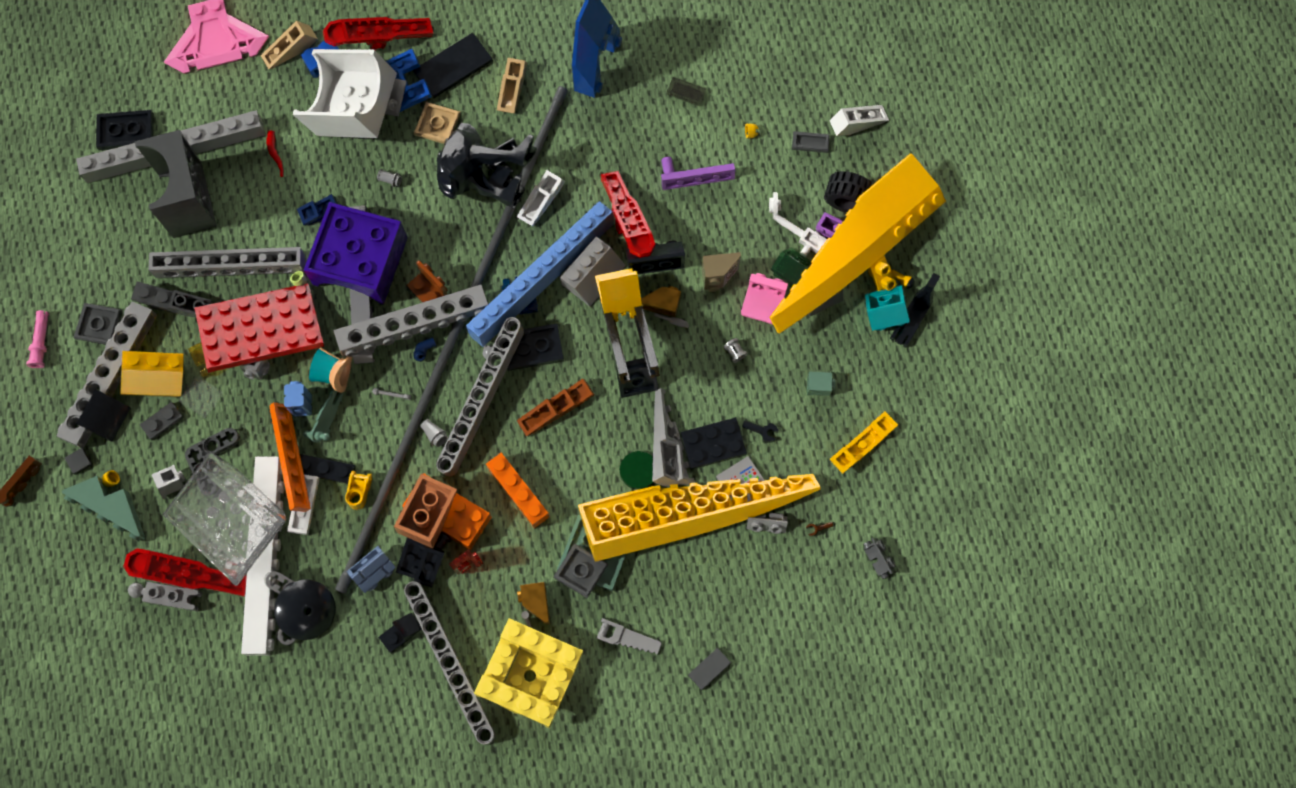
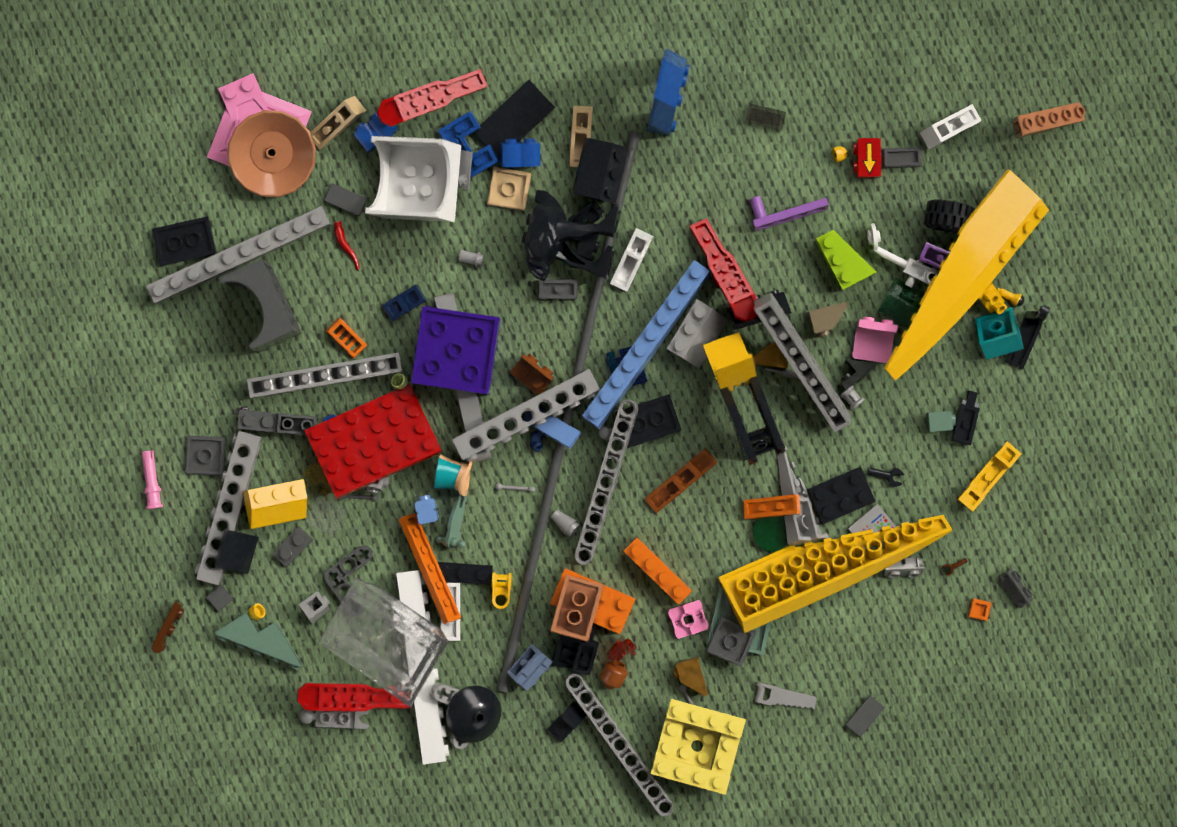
camera: 10 degrees left, 15 degrees up
(209, 45) = (276, 173): none -> nougat dish
(221, 379) = (374, 497): none -> dark grey hinge
(249, 221) = (334, 326): none -> orange slope
(281, 113) = (345, 199): none -> dark grey tile
(441, 342) = (555, 429): none -> medium blue tile
(451, 91) = (520, 153): none -> blue brick
(456, 589) = (613, 674): none -> dark orange head
(466, 215) = (558, 289): none -> dark grey plate
(523, 112) = (600, 170): none -> black slope
(536, 554) = (693, 608): none -> bright pink piece
(641, 441) = (772, 507): none -> orange plate
(690, 302) = (802, 362): none -> light grey brick
(743, 223) = (843, 260): none -> lime wedge
(746, 325) = (860, 369): none -> pearl dark grey slope
(778, 136) = (867, 158): none -> red brick
(840, 575) = (979, 609): none -> orange tile
(846, 386) = (966, 419): none -> black hinge
(949, 121) = (1048, 119): none -> nougat slope

